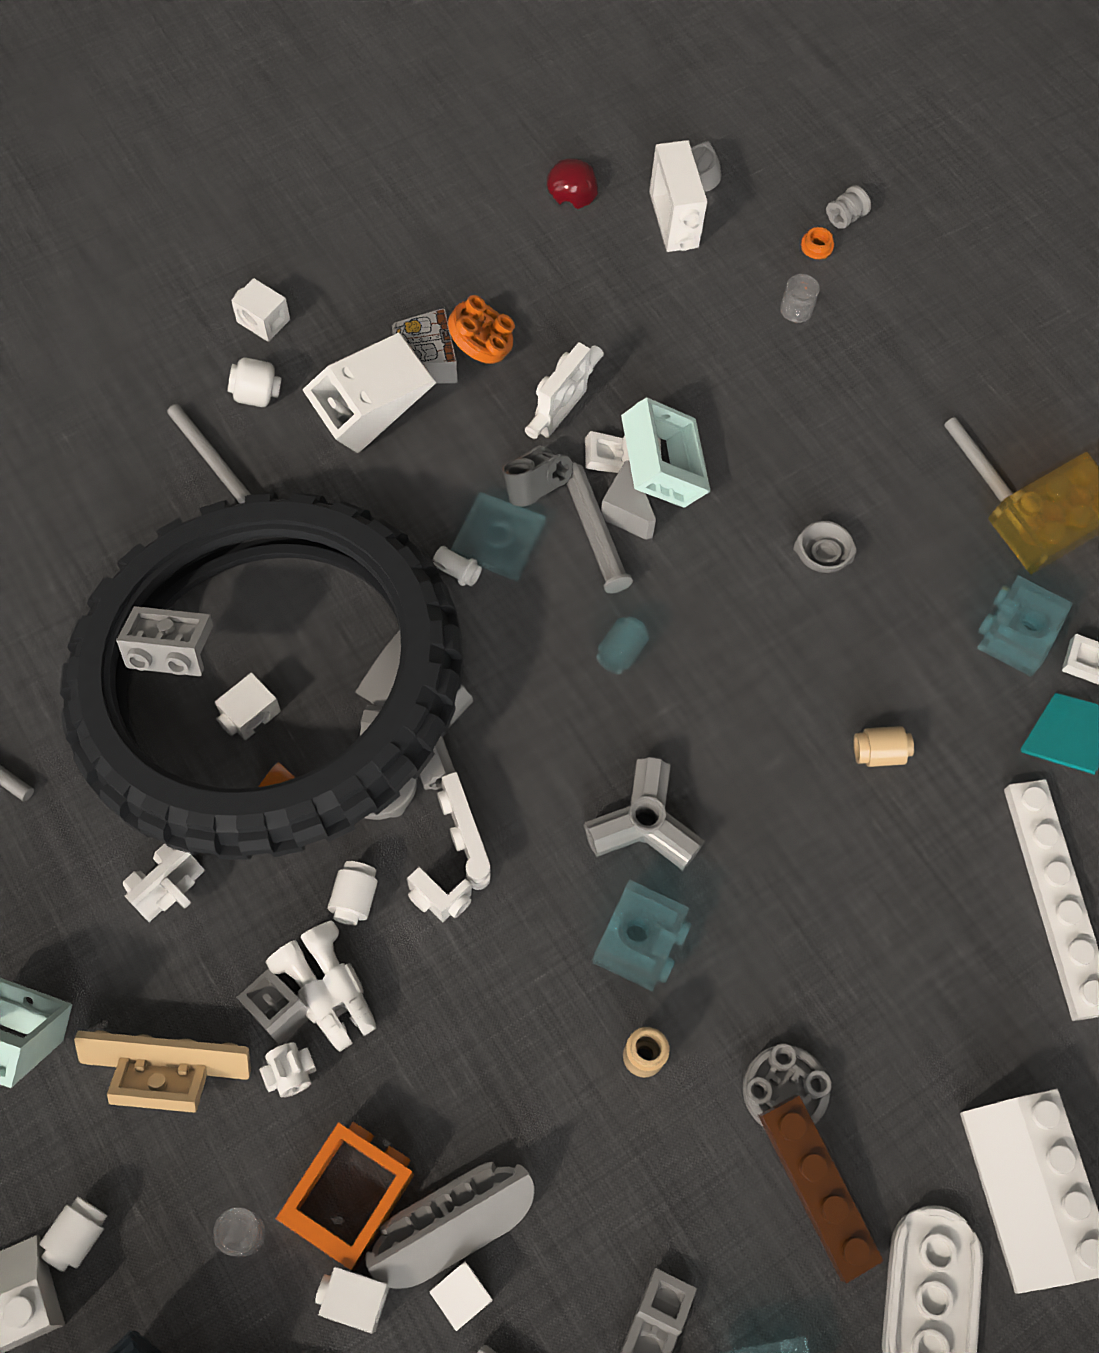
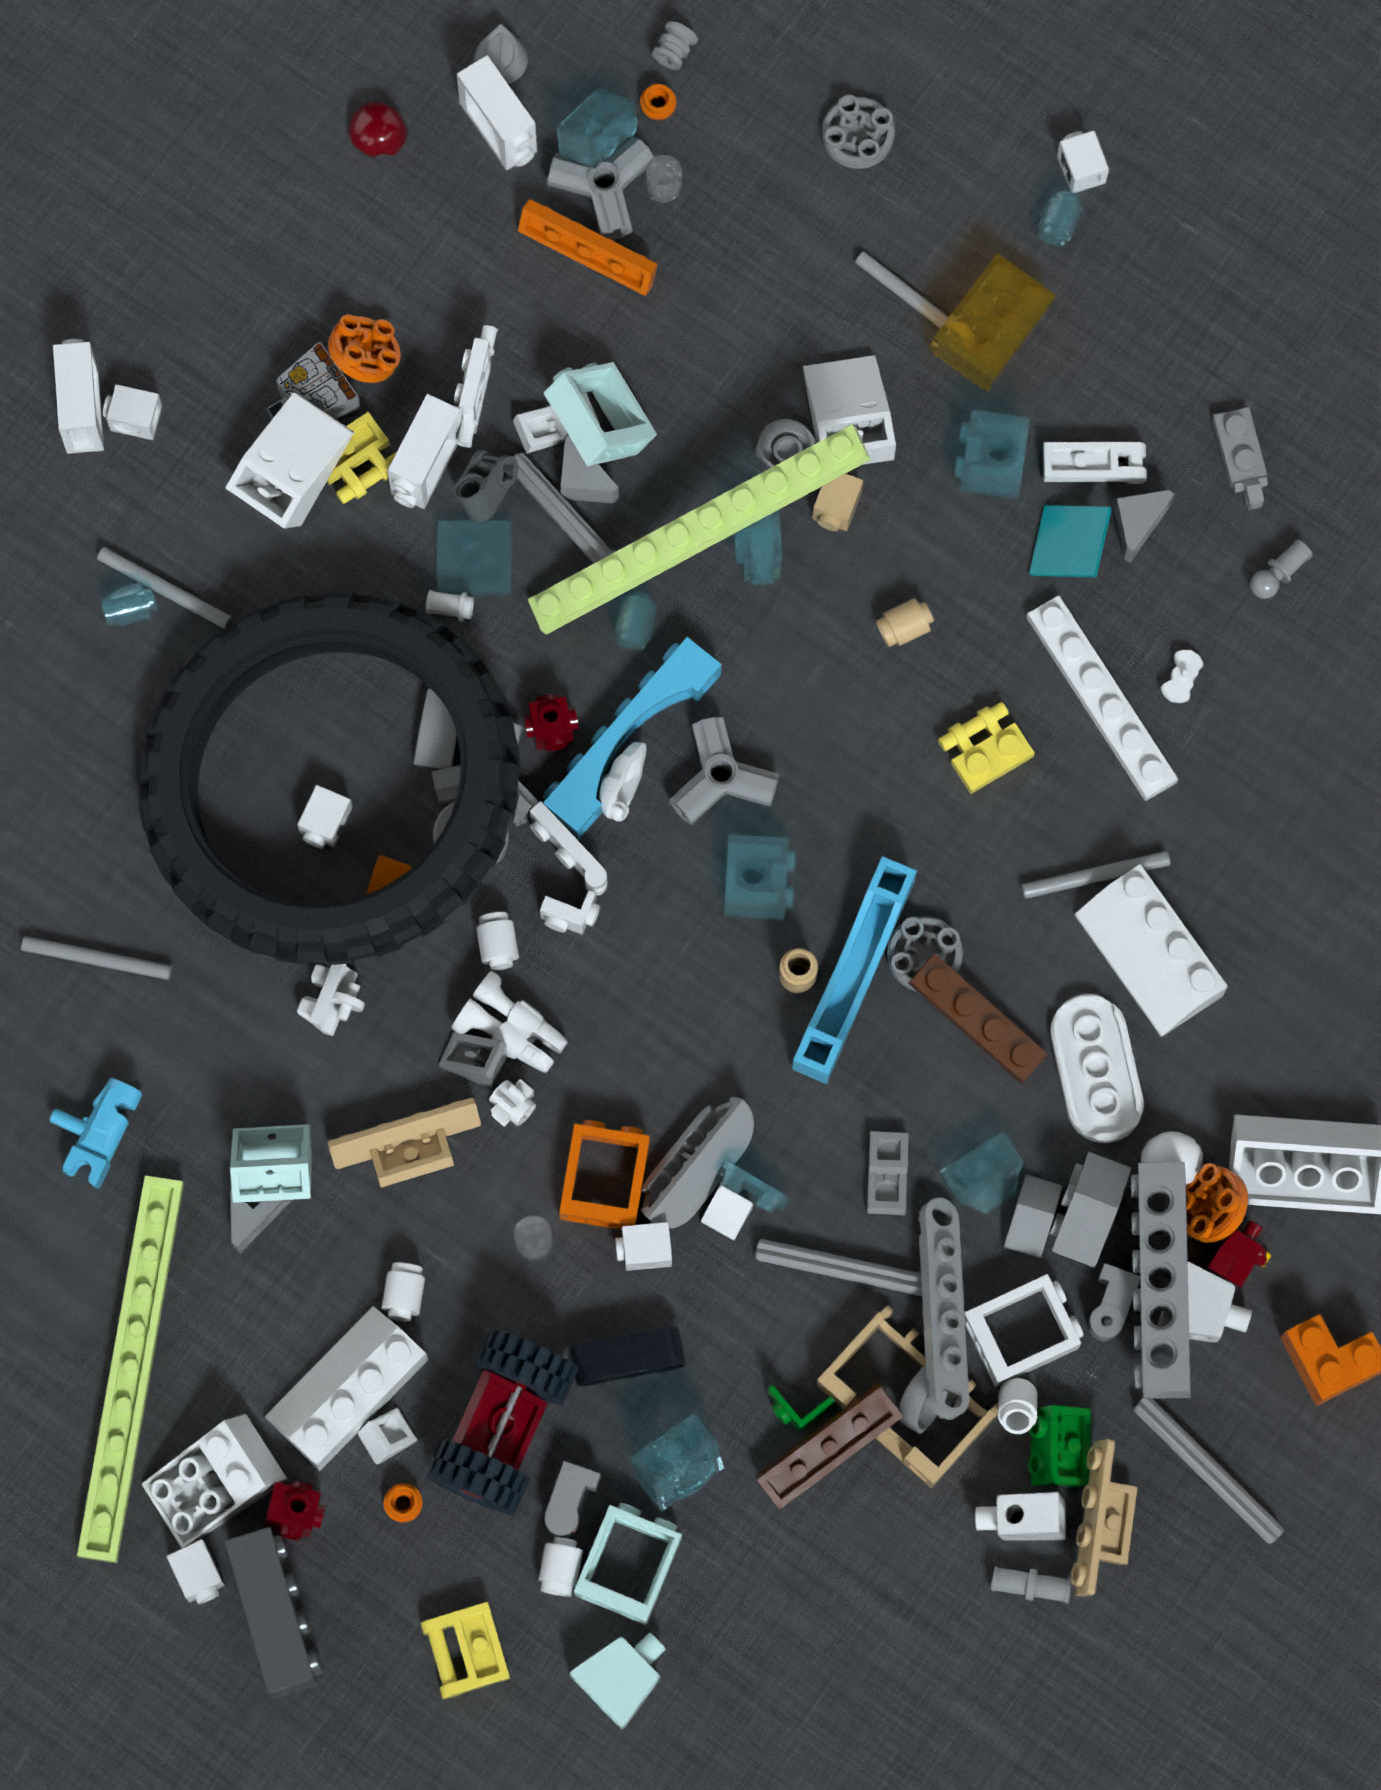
camera: 20 degrees left, 10 degrees up
(164, 640) = (241, 790): light grey bracket -> none
(170, 456) = (128, 605): none -> clear light blue brick
(215, 274) = (78, 396): none -> white window
(253, 382) = (167, 495): white head -> none
(437, 405) = (364, 445): none -> light yellow plate
(492, 426) = (424, 452): none -> white window
(501, 704) = (554, 734): none -> dark red brick
(511, 1294) = (766, 1196): none -> clear light blue plate
(546, 787) = (622, 781): none -> white arm
(647, 711) = (683, 676): none -> medium azure arch
(703, 1078) = (854, 970): none -> medium azure arch
(711, 326) = (587, 247): none -> orange plate
(723, 576) = (699, 529): none -> yellowish green plate
(745, 283) = (608, 202): none -> light grey piece
(758, 236) = (597, 128): none -> clear light blue brick
(770, 614) = (760, 550): none -> clear light blue brick
(857, 611) = (838, 502): none -> tan brick
(897, 544) = (851, 394): none -> white slope
(926, 911) = (991, 757): none -> light yellow plate
(984, 326) = (858, 132): none -> light grey tile
(996, 1078) = (1093, 875): none -> light grey bar

